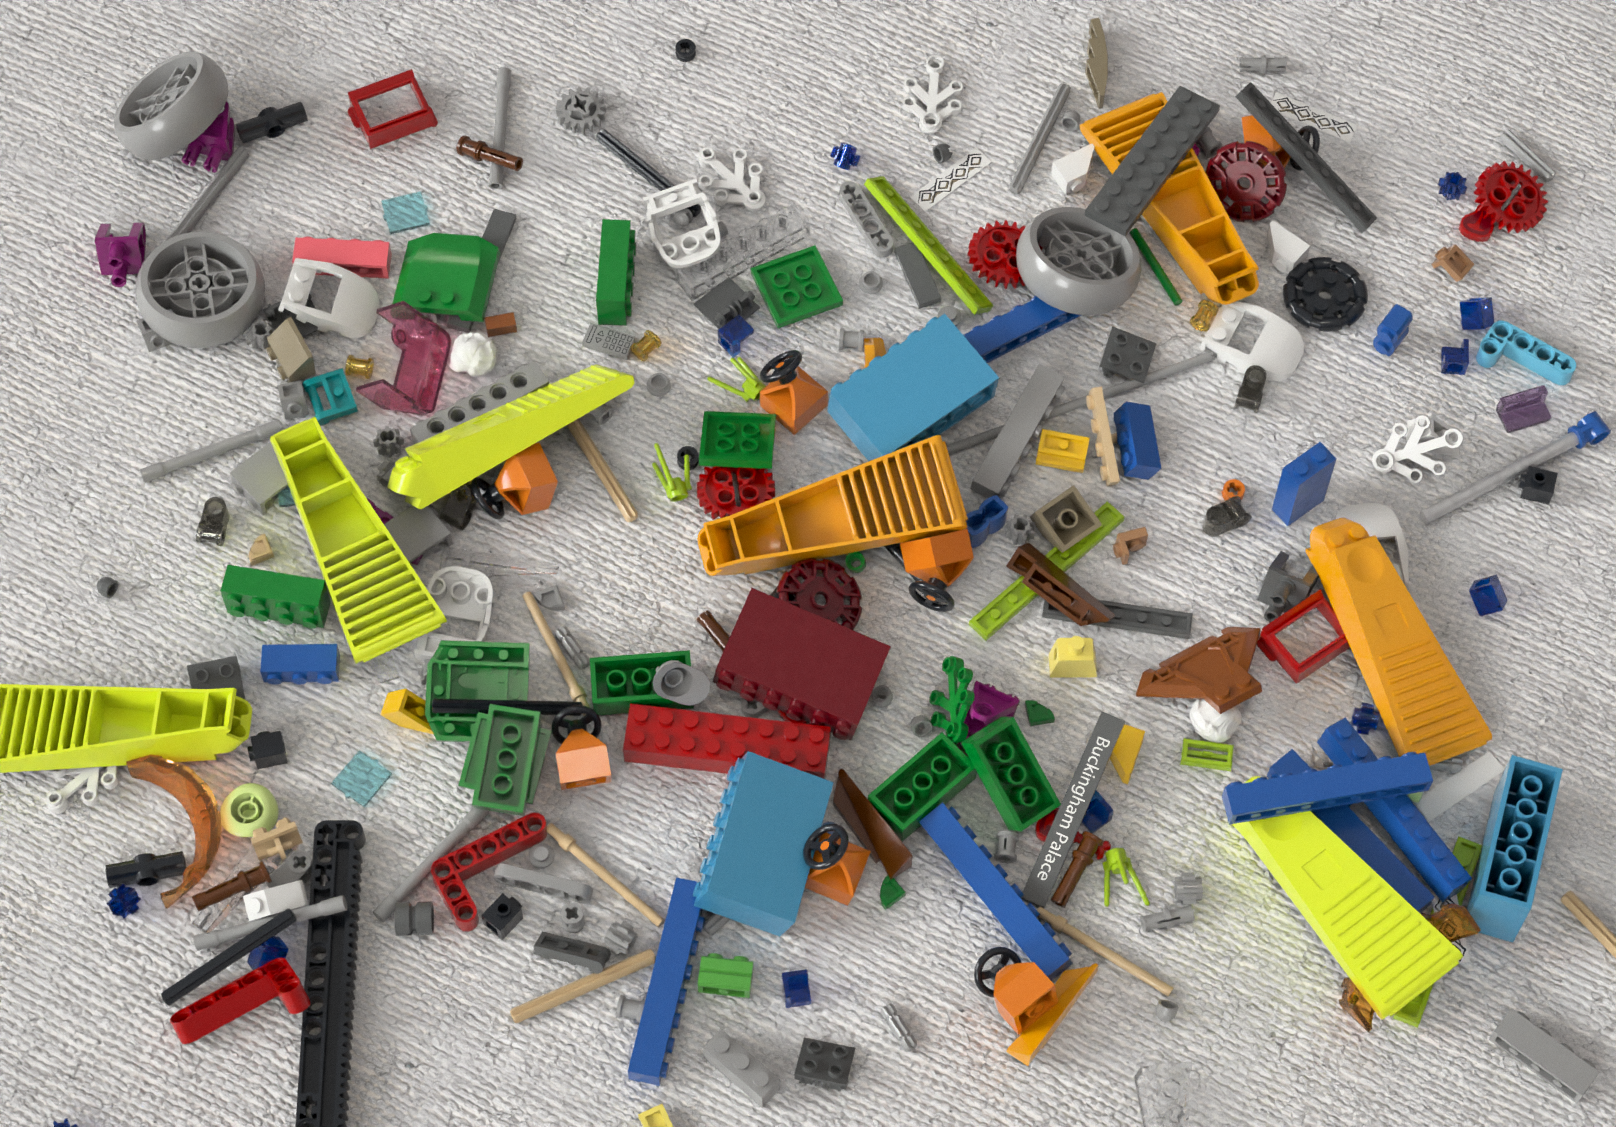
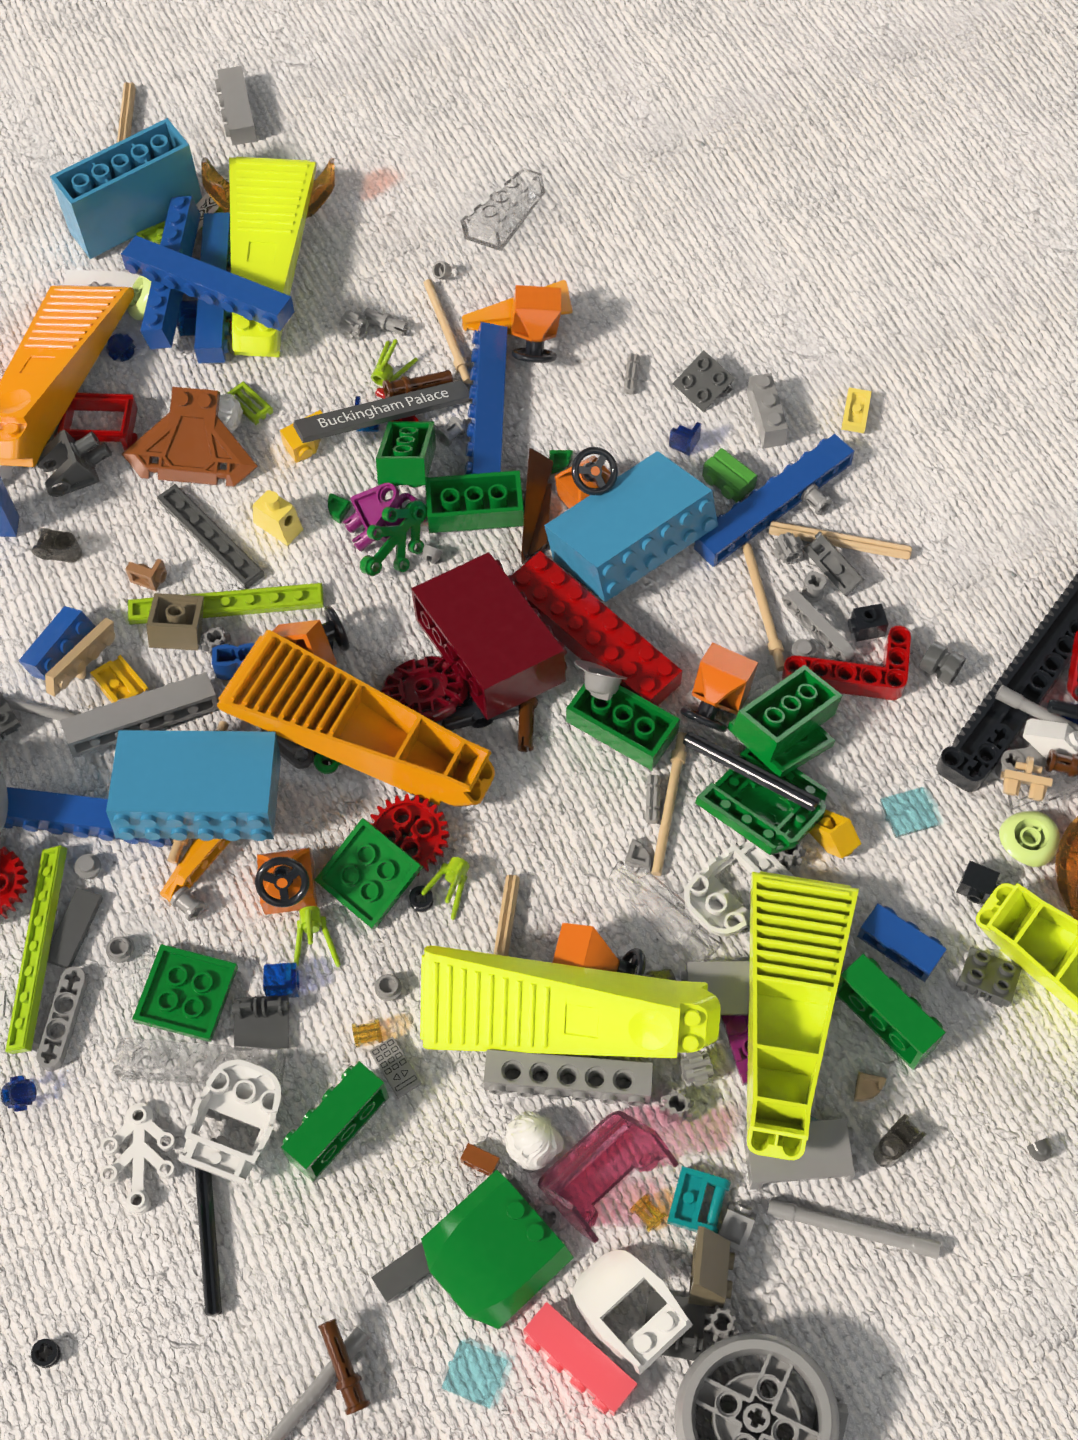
camera: 140 degrees left, 0 degrees up
(468, 823) = (948, 693): light grey piece -> none
(578, 107) = (211, 1342): light grey gear -> none
(1057, 587) = (233, 576): reddish brown wedge -> none
(1236, 485) = (30, 570): orange bush -> none

